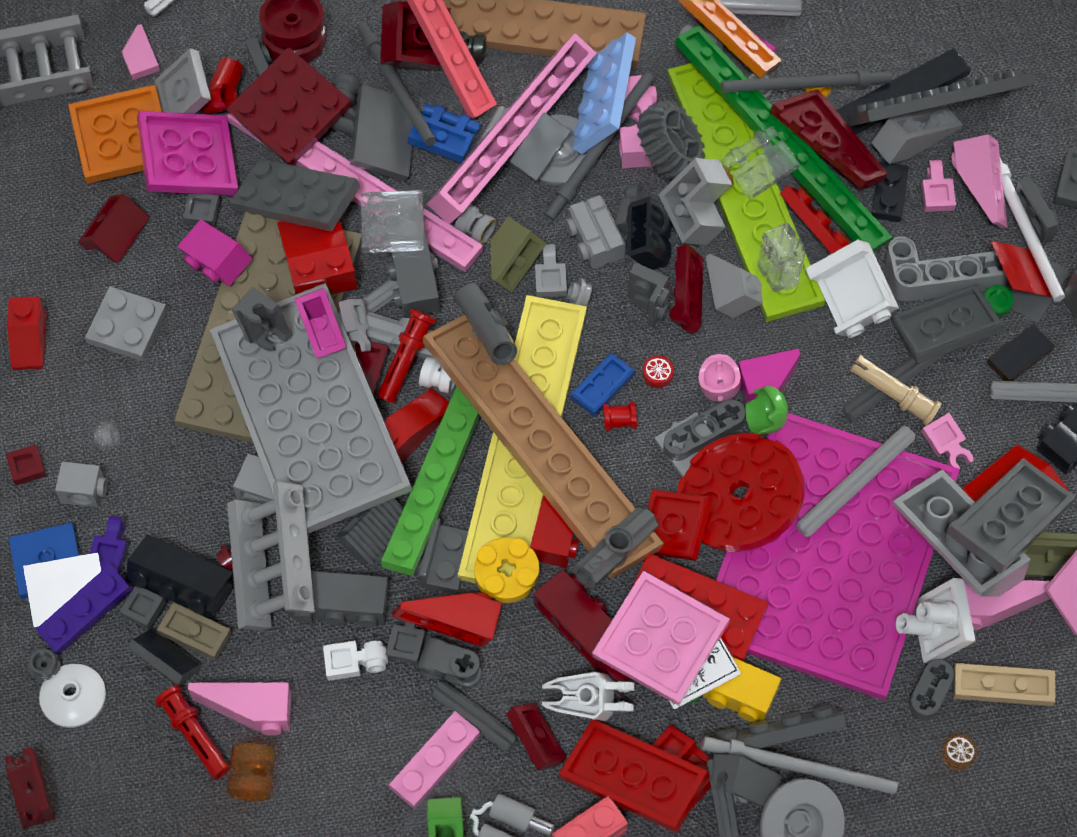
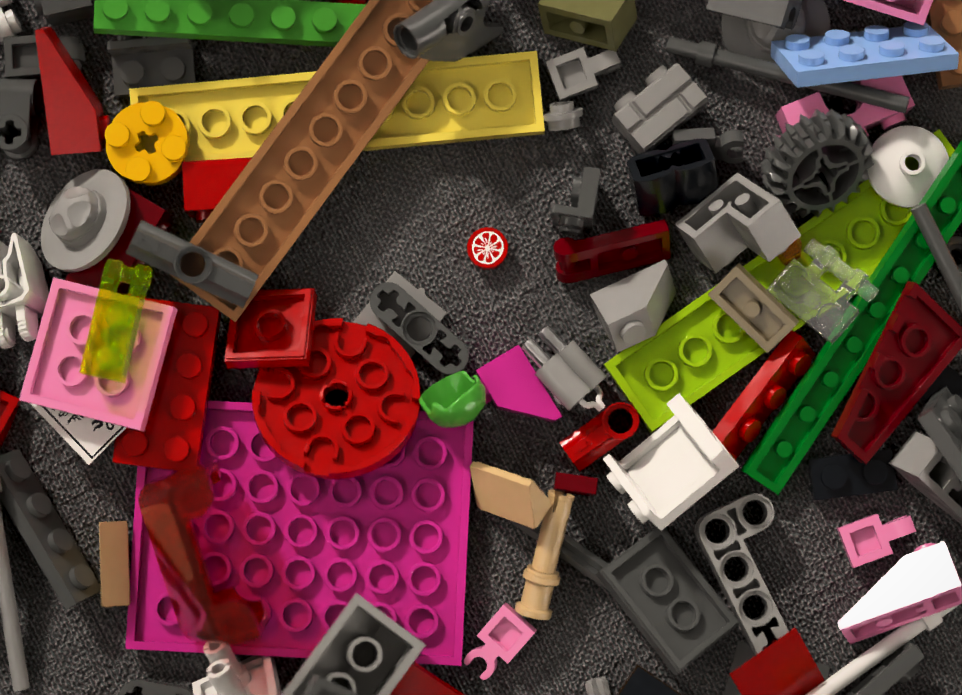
camera: 75 degrees right, 20 degrees up
(550, 630) = (85, 220): none -> light grey hat
(602, 384) = (444, 184): blue plate -> none
(619, 416) = (404, 218): red bush -> none
(644, 609) = (115, 321): none -> clear neon green plate
(697, 101) = (891, 176): none -> white dish
(719, 378) = (491, 327): bright pink piece -> none
(747, 693) = (80, 485): yellow brick -> none
(758, 208) = (753, 308): none -> dark tan plate
(766, 339) = (568, 373): none -> light grey piece
(781, 257) = (676, 357): clear brick -> none
(817, 334) = (596, 437): none -> red piece
(818, 688) = (114, 563): none -> tan slope
(834, 613) = (201, 613): none -> clear red windscreen
(845, 398) = (508, 495): none -> tan slope
(847, 359) = (575, 484): none -> dark red tile
(855, 481) = (398, 538): light grey axle -> none
(1000, 299) = (729, 655): green tile -> none

